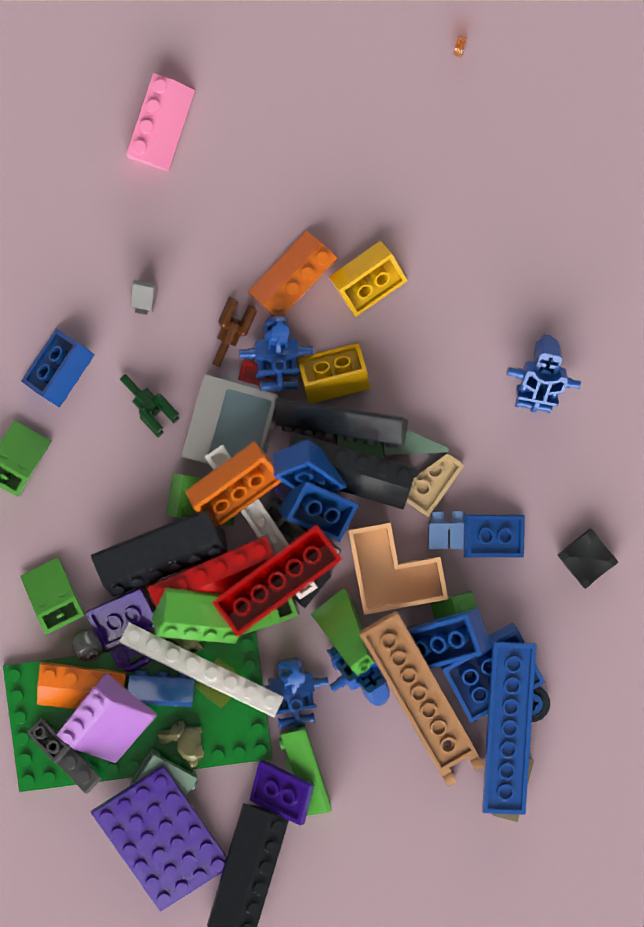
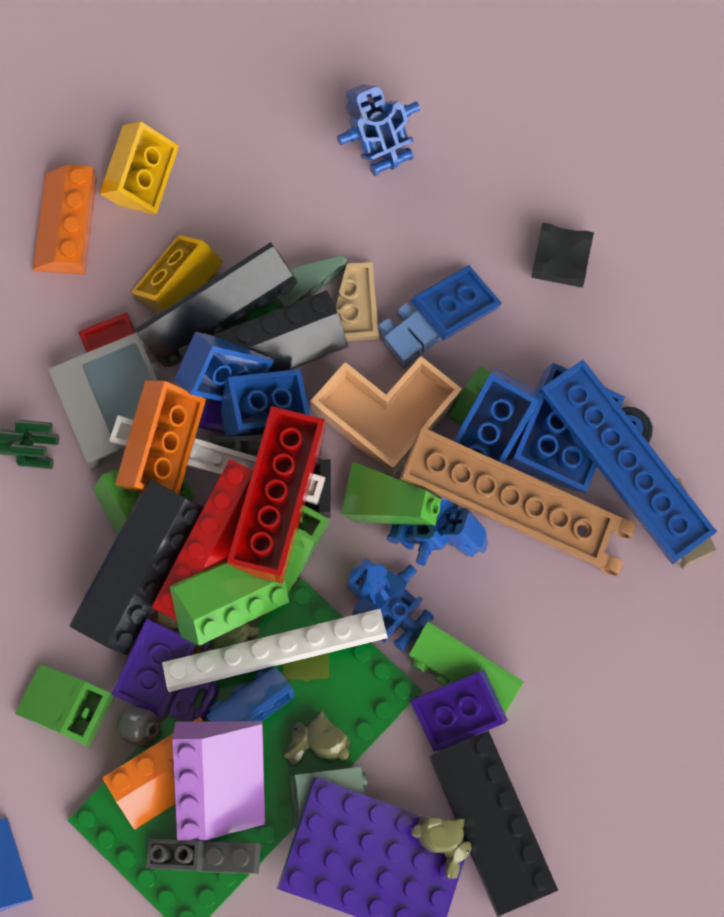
camera: 40 degrees left, 15 degrees down
(212, 859) = (446, 838): none -> olive animal
(232, 328) = (42, 309): reddish brown plant -> none
(276, 355) = (104, 296): blue piece -> none

